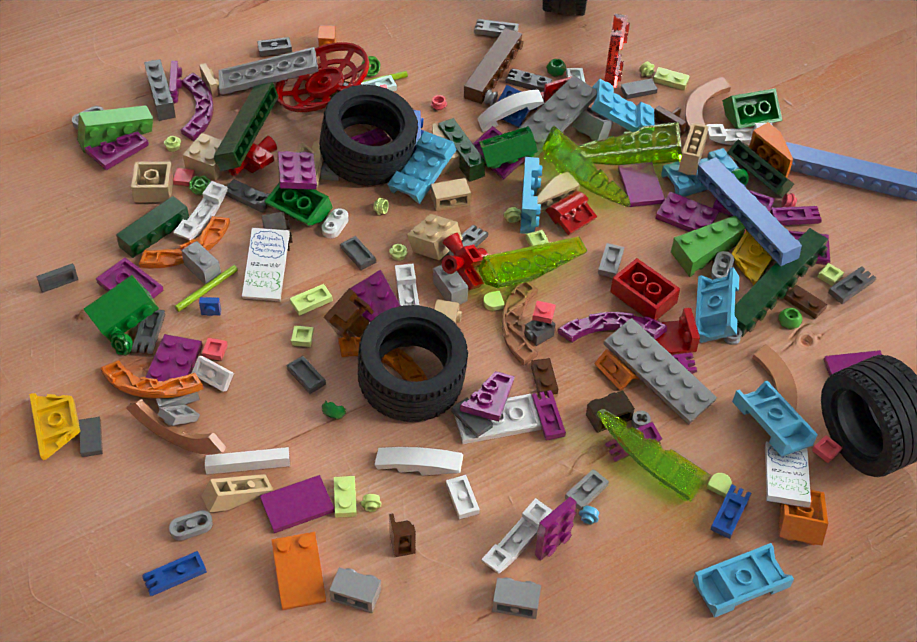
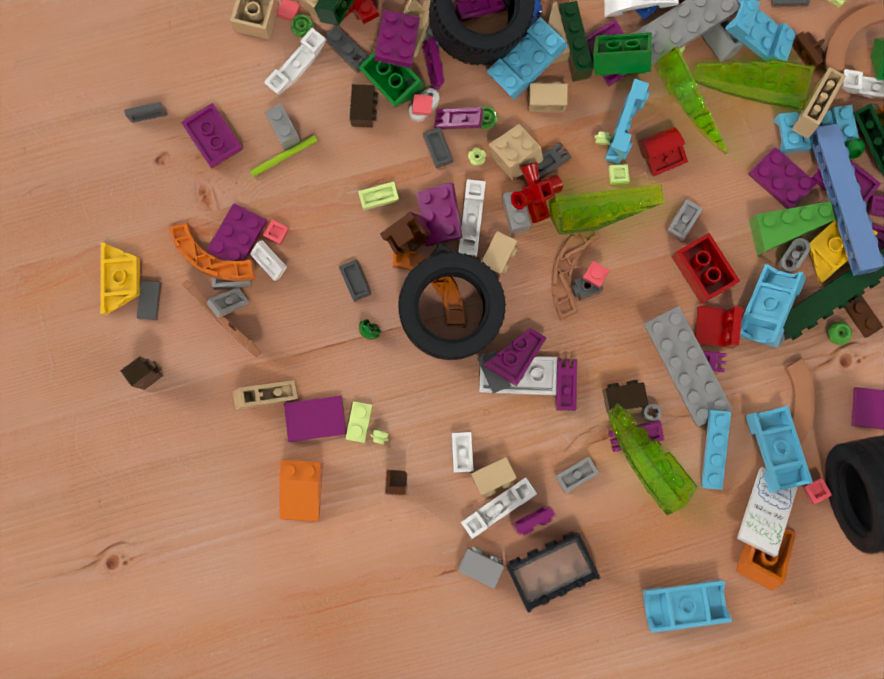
camera: 20 degrees right, 30 degrees up
(98, 495) = (142, 373): none -> dark brown brick
(121, 308) = (196, 172): green slope -> none
(122, 343) = (193, 205): green plate -> none
(148, 332) = (219, 196): dark grey hinge -> none
(152, 227) = (246, 69): dark green brick -> none
(167, 258) = (290, 100): orange tile -> none
(174, 573) = (196, 462): blue hinge -> none
(190, 525) = (219, 418): light grey plate -> none
(210, 306) = (281, 182): blue plate -> none
(247, 460) = (283, 362): white slope -> none
(265, 264) = (343, 145): white tile -> none
(302, 336) = (360, 237): yellowish green plate -> none
(334, 219) = (422, 105): none -> coral tile
(335, 189) = (433, 63): none -> magenta hinge
(355, 589) = (344, 521): light grey brick -> none
(372, 223) = (459, 118): none -> magenta hinge
(381, 206) = (474, 95): yellowish green plate -> none
(397, 220) = (492, 117): none -> bright green plate
(419, 459) = (433, 405): white slope -> none
(493, 301) = (553, 240): yellowish green tile -> none
(501, 510) = (494, 476): none -> tan brick
(544, 376) = (576, 339): reddish brown plate -> none
(557, 189) = (660, 118): tan slope -> none
(589, 515) = (570, 501): medium azure plate -> none
(594, 583) = (552, 570): none -> clear window
(608, 321) = (660, 293): magenta tile -> none
(615, 369) = (645, 351): orange panel -> none
(641, 184) = (748, 128): magenta tile -> none
(715, 434) = (715, 449): none -> medium azure plate
(720, 484) = (702, 499): yellowish green tile -> none
(730, 512) = (701, 532): blue hinge -> none

